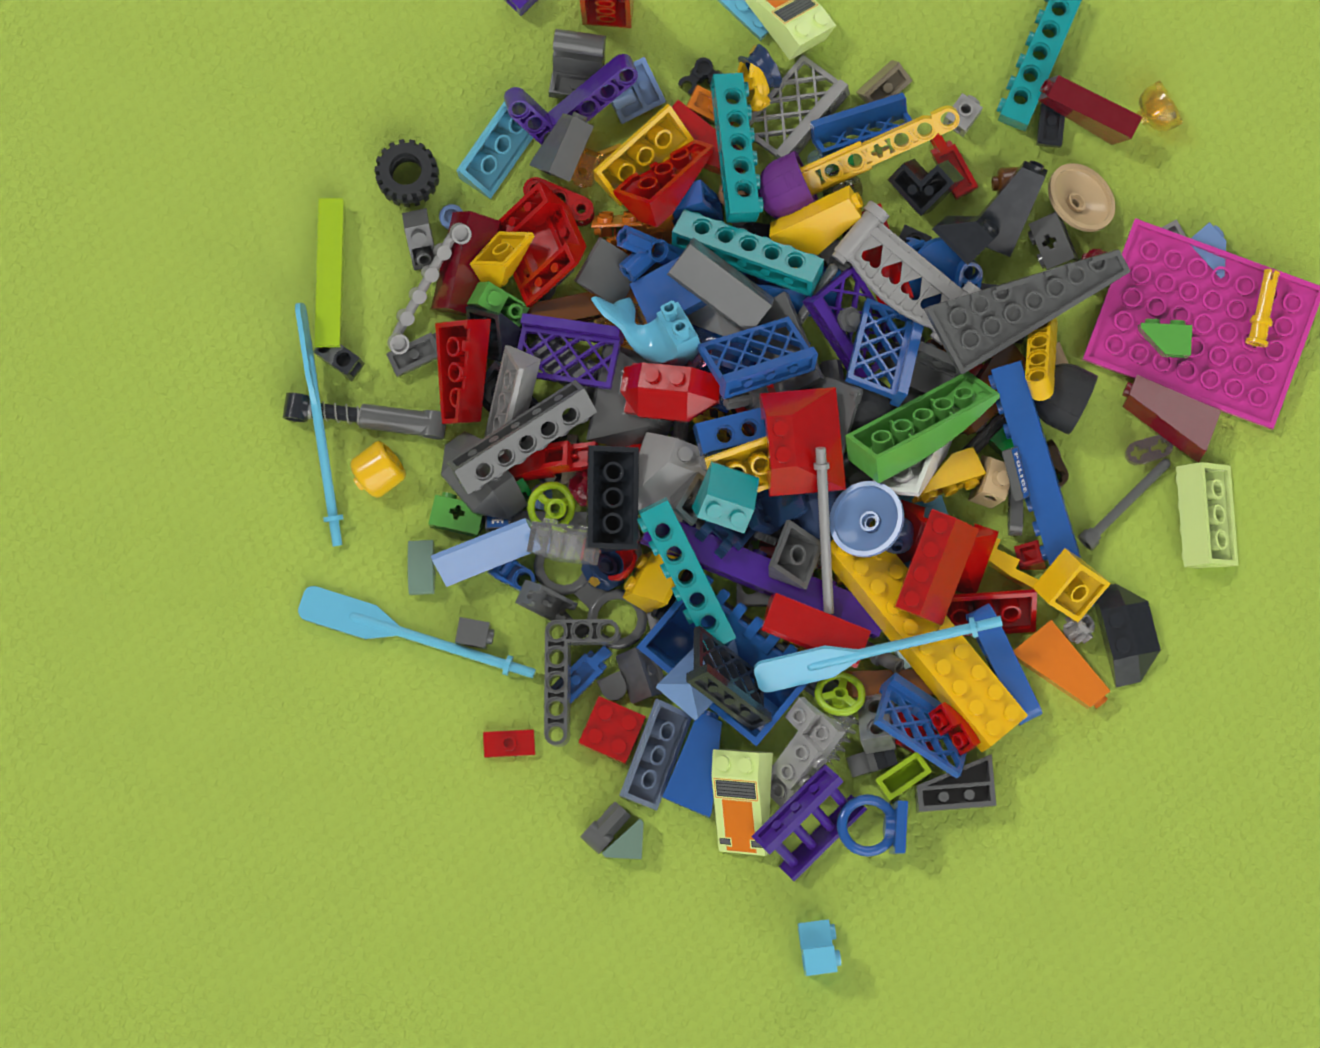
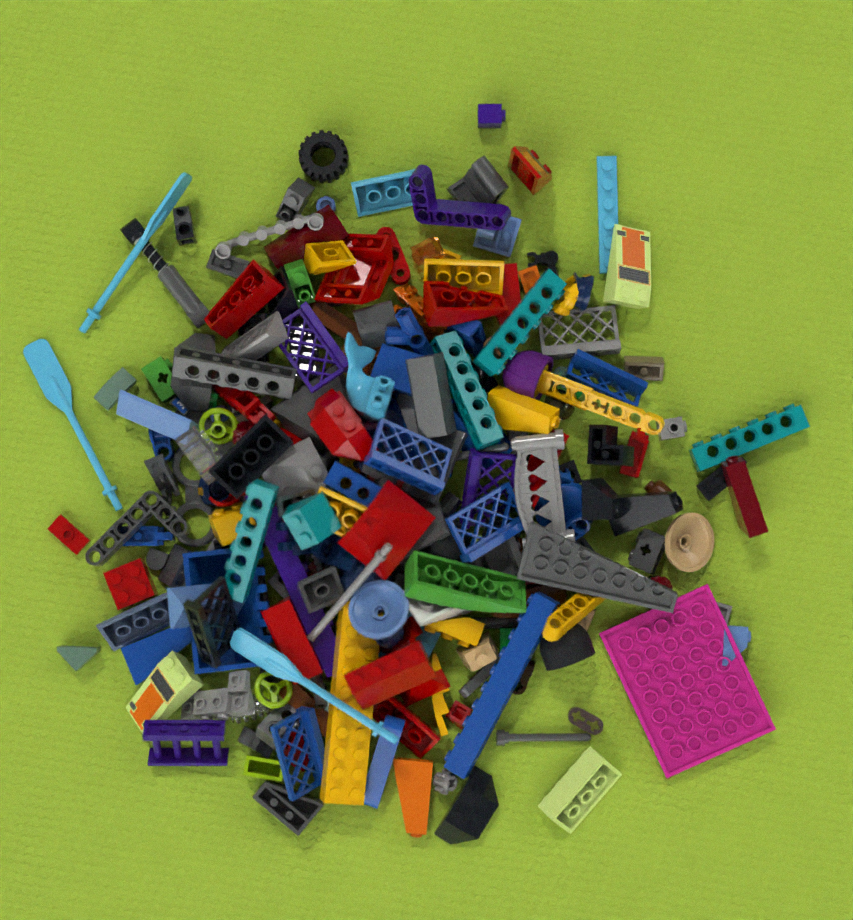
camera: 45 degrees right, 5 degrees up
(329, 272) = (225, 171): lime slope -> none
(377, 469) = (143, 310): yellow head -> none
(474, 633) = (108, 454): dark grey brick -> none
(563, 146) = (423, 228): dark grey slope -> none
(601, 832) = (73, 633): dark grey piece -> none
(817, 947) = (120, 819): medium azure brick -> none
(849, 319) = (485, 484): dark grey plate -> none
(893, 826) = (230, 791): blue tile -> none
(951, 722) = (316, 763): red slope -> none
(1016, 473) = (491, 664): dark grey tile -> none
(1071, 585) = (460, 756): yellow slope -> none
(1158, 108) = (785, 534): clear yellow cylinder -> none
(1168, 339) = (656, 671): bright green slope -> none
(1172, 415) = (617, 716): slope -> none
(1261, 320) = (720, 712): yellow pin -> none

